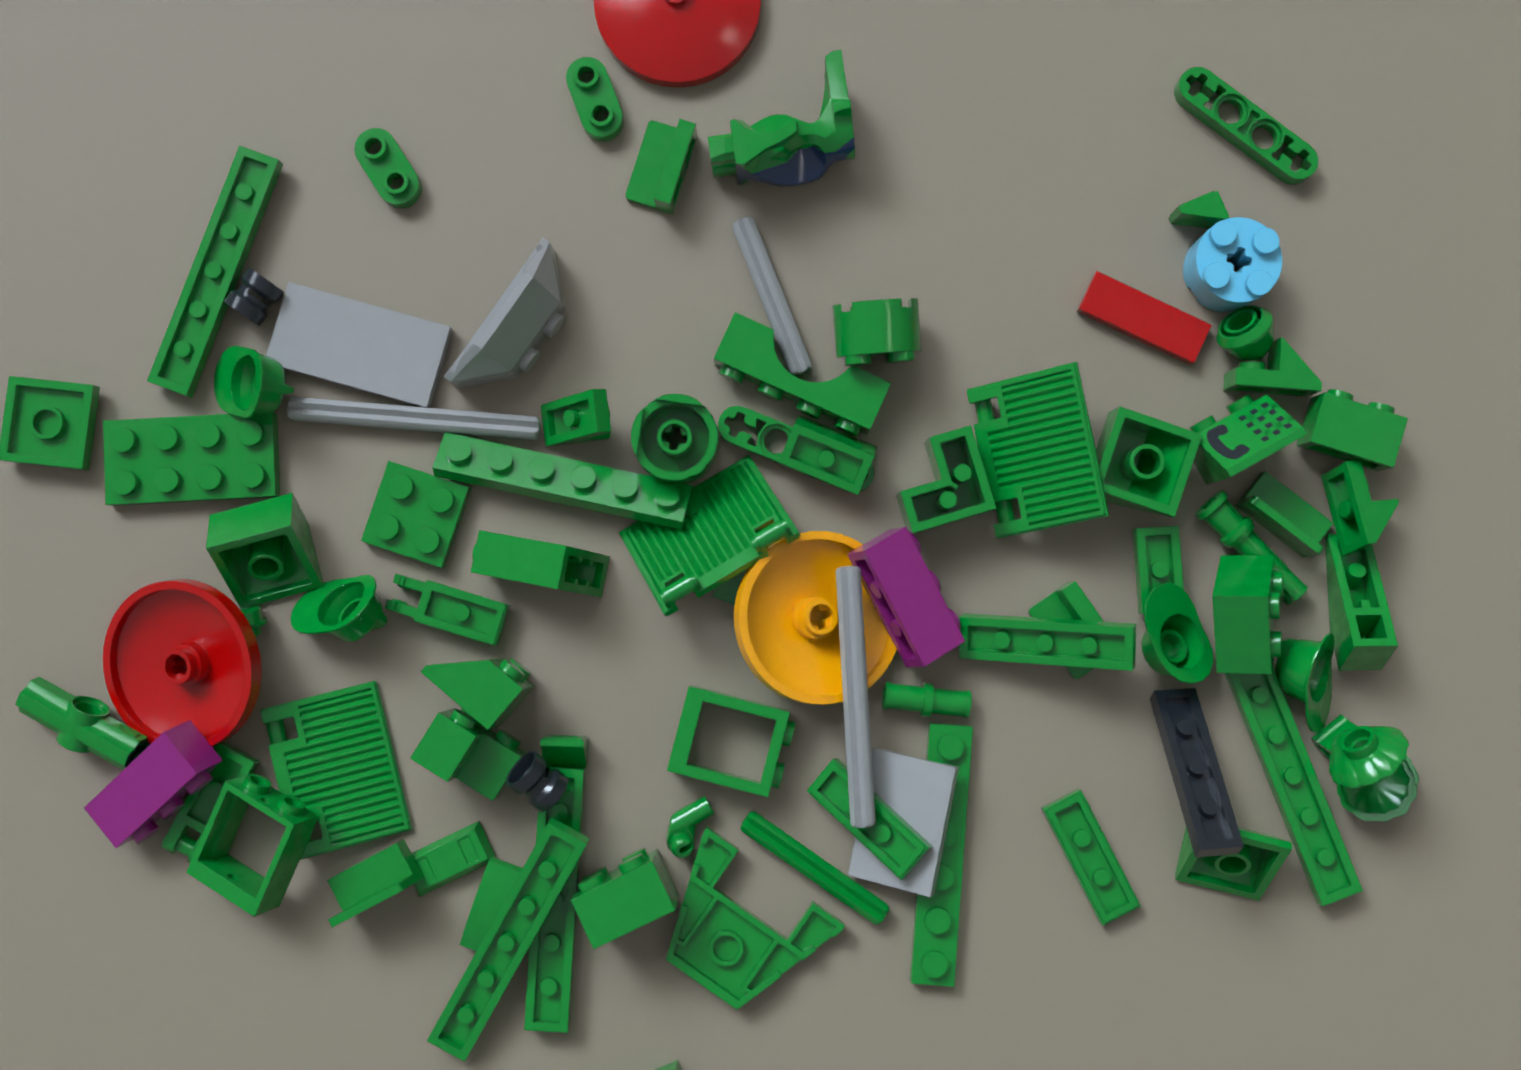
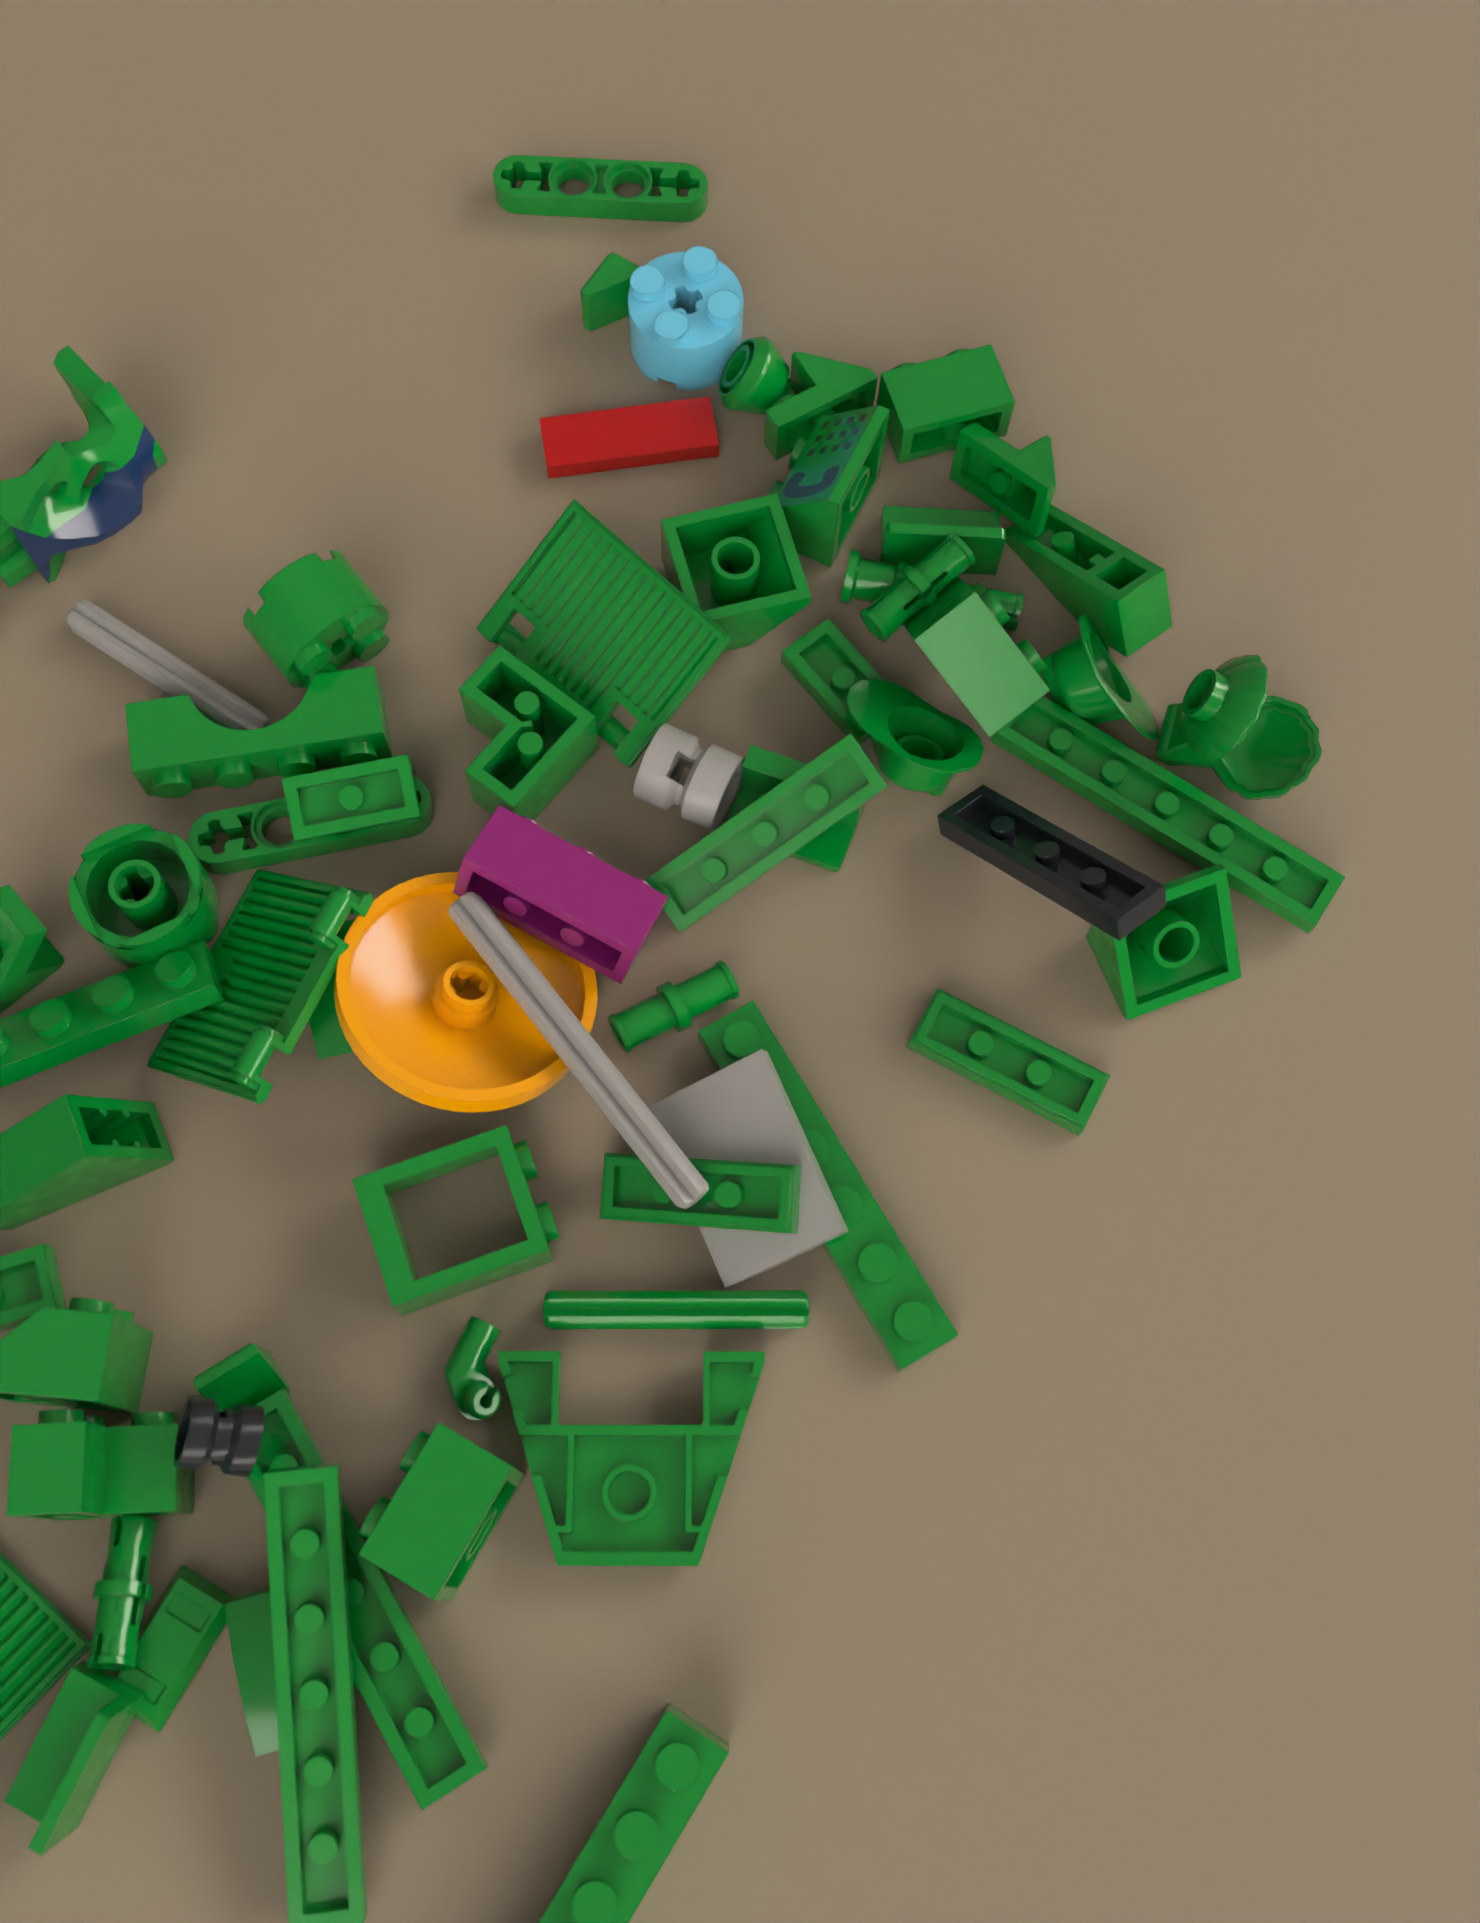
camera: 40 degrees left, 15 degrees down
(441, 820) = (122, 1594): none -> green pin
(1035, 585) = (710, 783): none -> light grey wheel
(1244, 548) = (917, 587): none -> green pin

